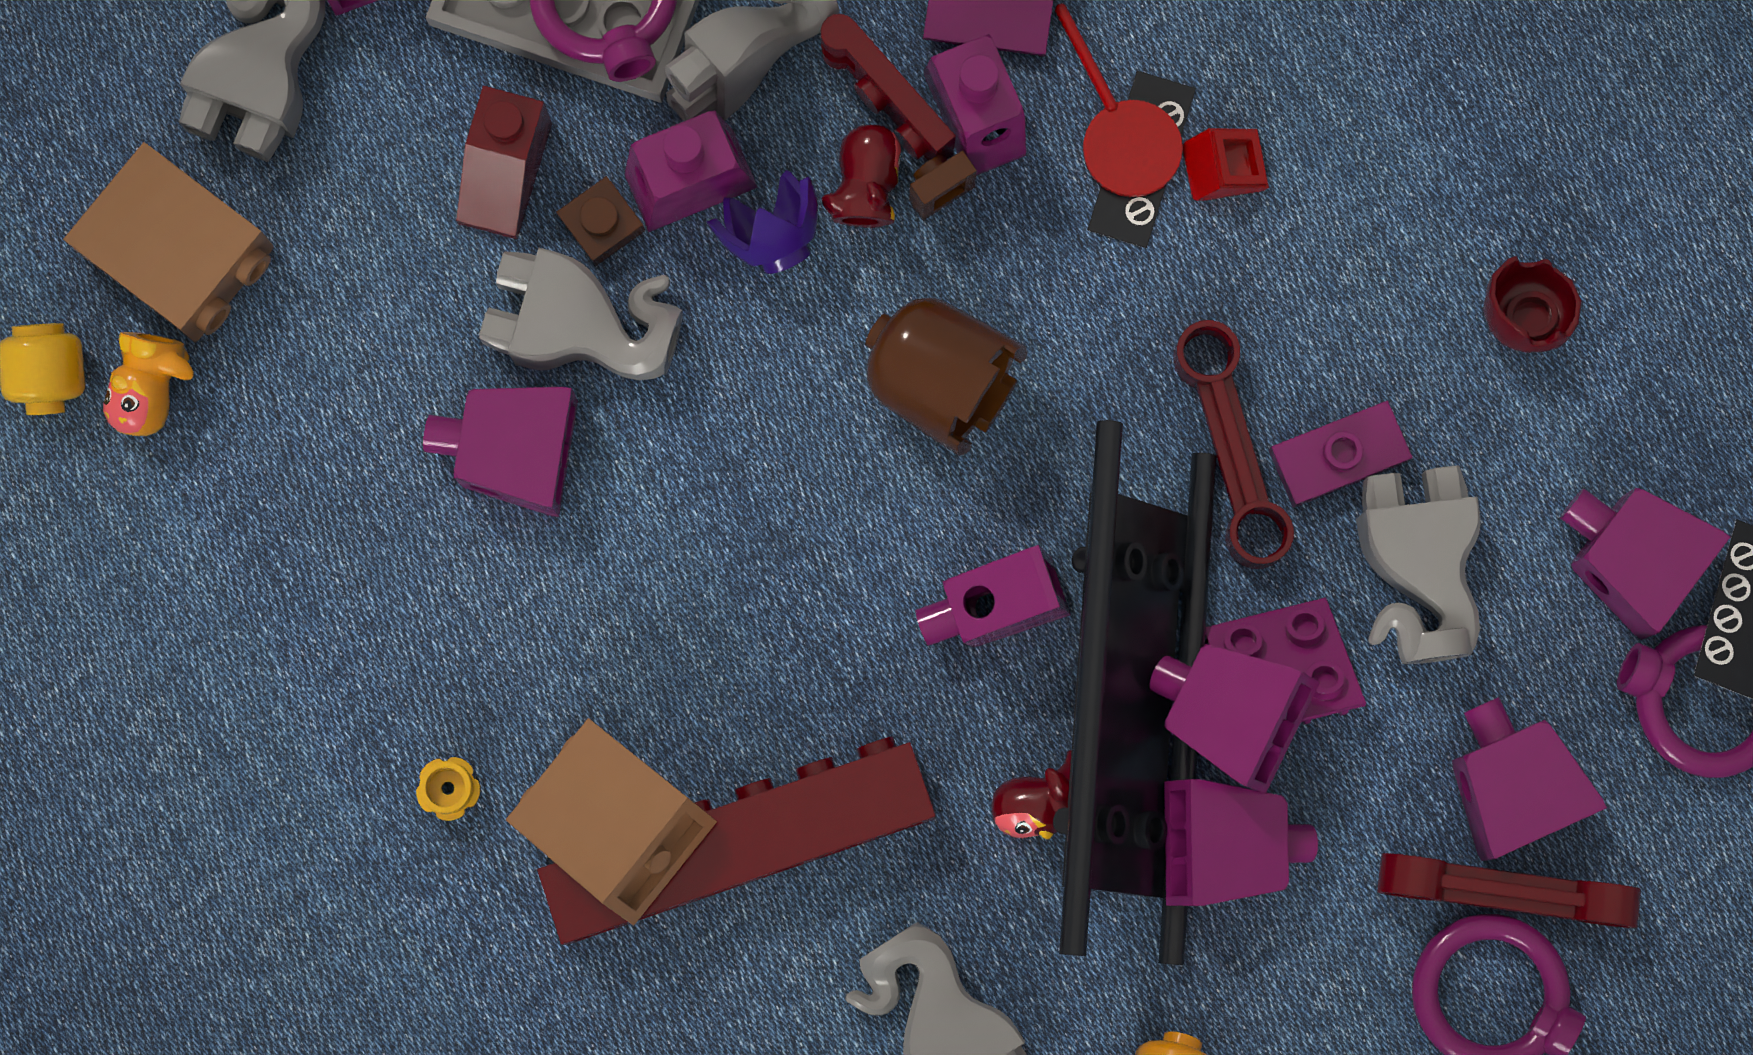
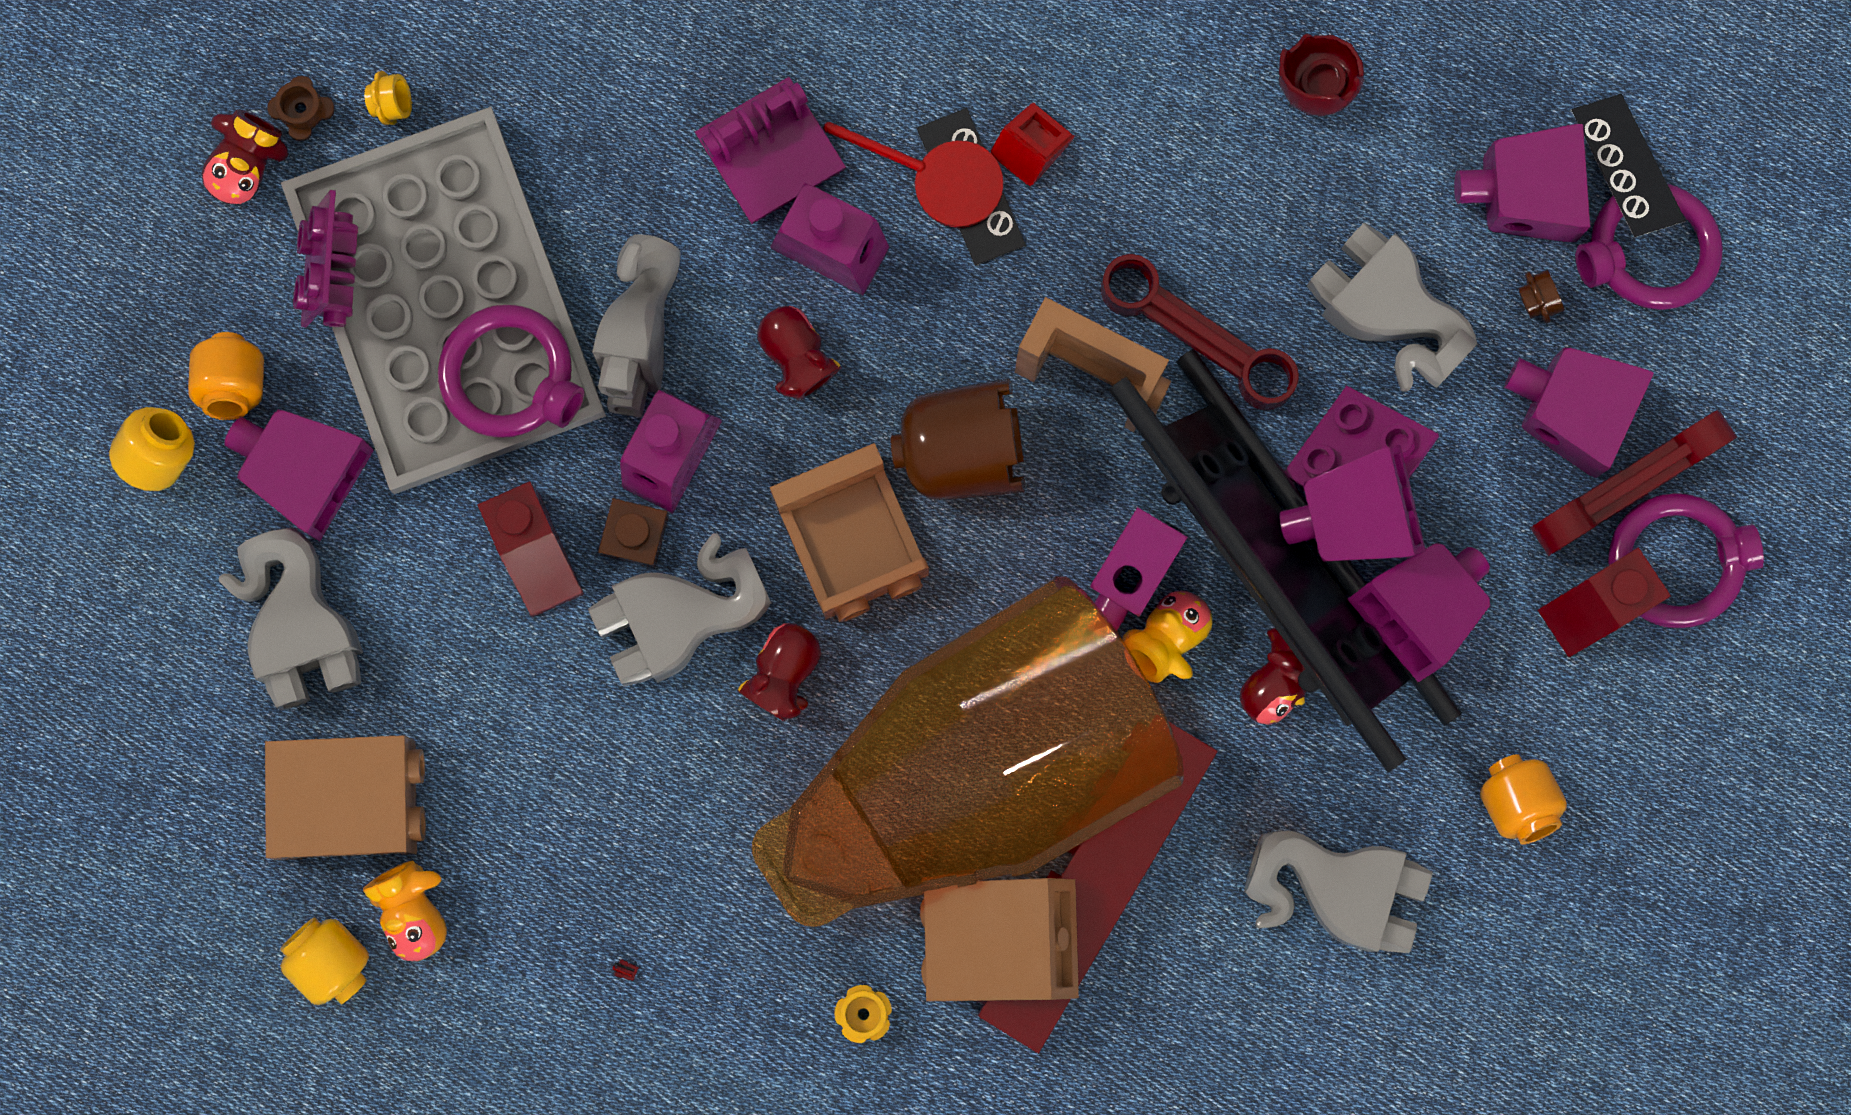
camera: 40 degrees left, 0 degrees up
(283, 583) = (625, 970): none -> dark red piece
(510, 444) = (704, 740): magenta torso -> none
(629, 436) = (782, 666): none -> dark red animal
(720, 651) = (978, 763): none -> clear orange windscreen
(767, 238) = (770, 443): dark purple piece -> none
(782, 370) = (850, 533): none -> medium nougat panel
(885, 88) = (757, 279): dark red plate -> none
(941, 183) = (850, 313): reddish brown plate -> none
(988, 681) = (1170, 631): none -> yellow animal
(1101, 338) = (1092, 350): none -> medium nougat panel
(1340, 454) = (1275, 279): magenta plate -> none
(1390, 972) = (1604, 602): none -> dark red slope
(1565, 660) = (1540, 296): none -> reddish brown plate

